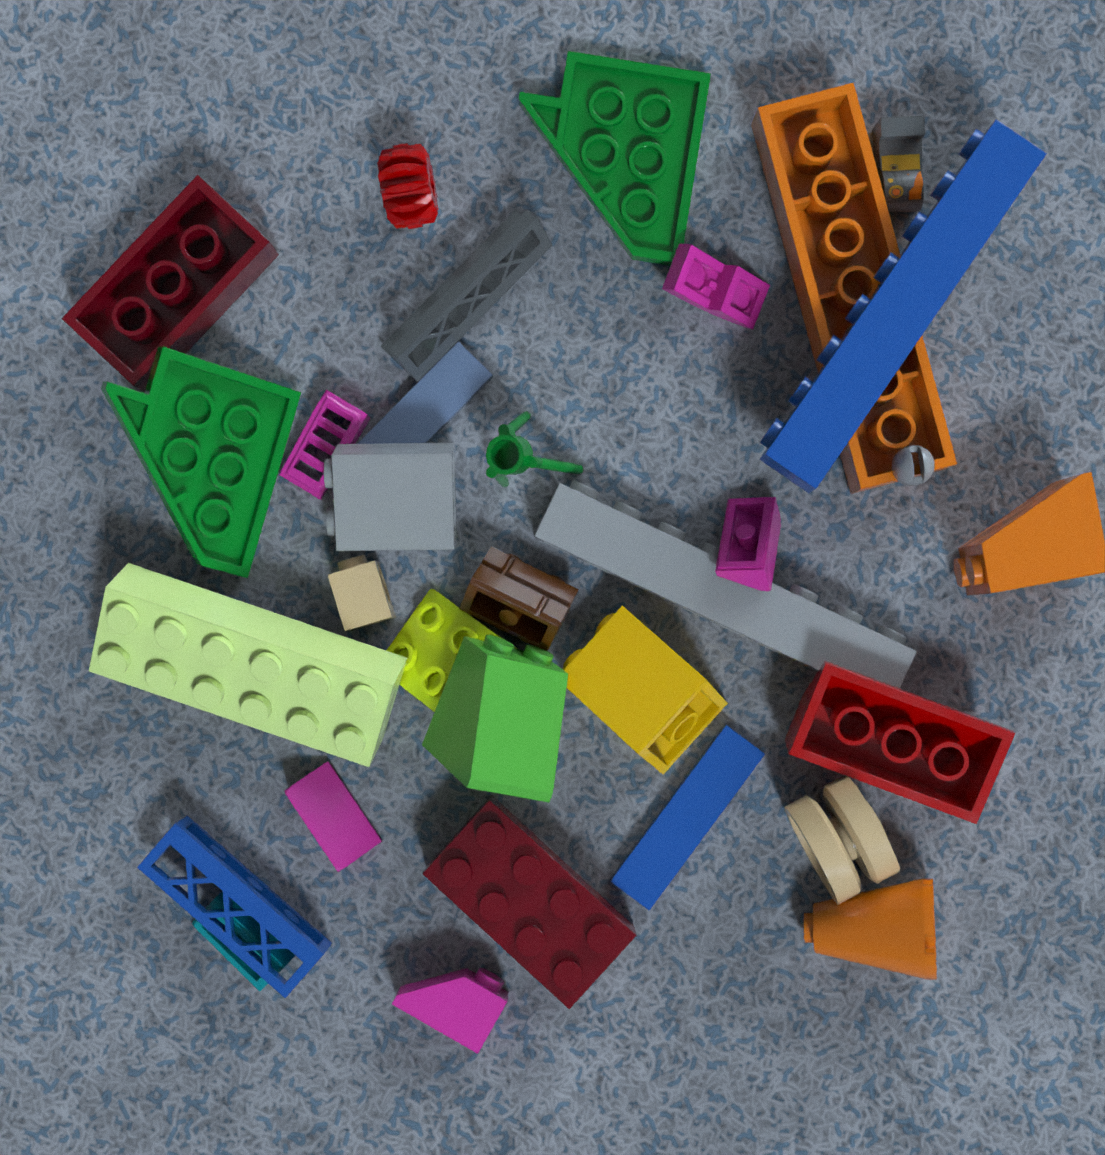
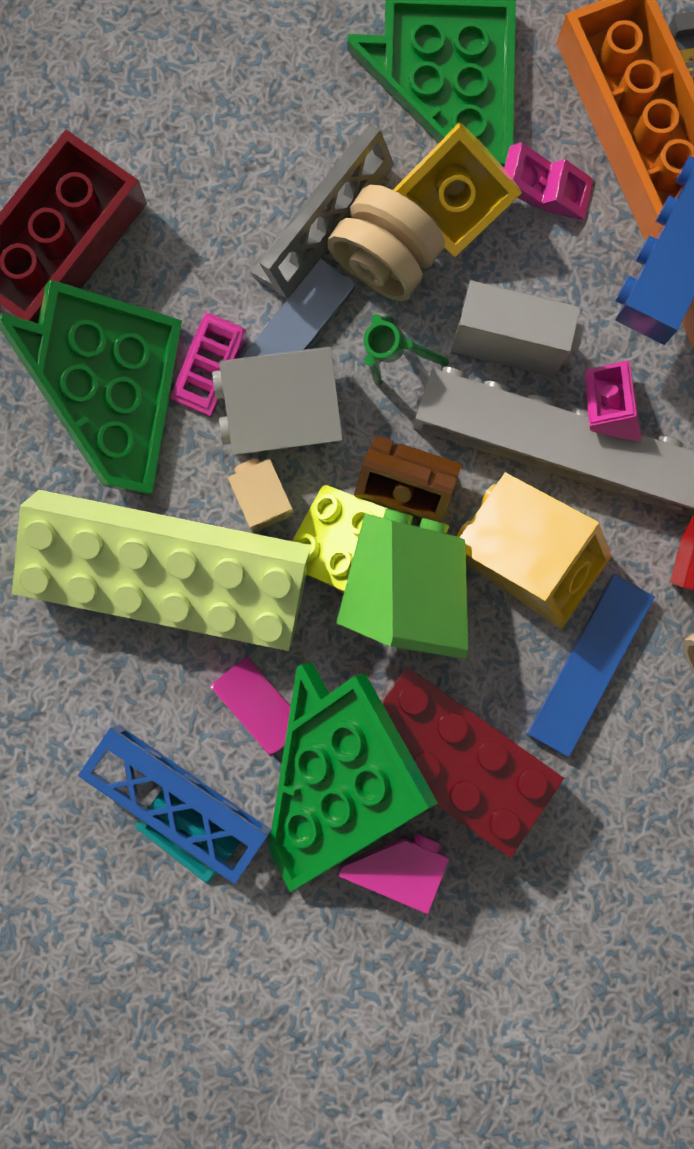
camera: 15 degrees left, 5 degrees down
(404, 905) = (340, 778): none -> green wing
(407, 186) = (258, 123): red gear -> none
(533, 335) = (386, 242): none -> tan wheel
(613, 291) = (460, 188): none -> yellow brick
(655, 453) = (517, 329): none -> light grey brick

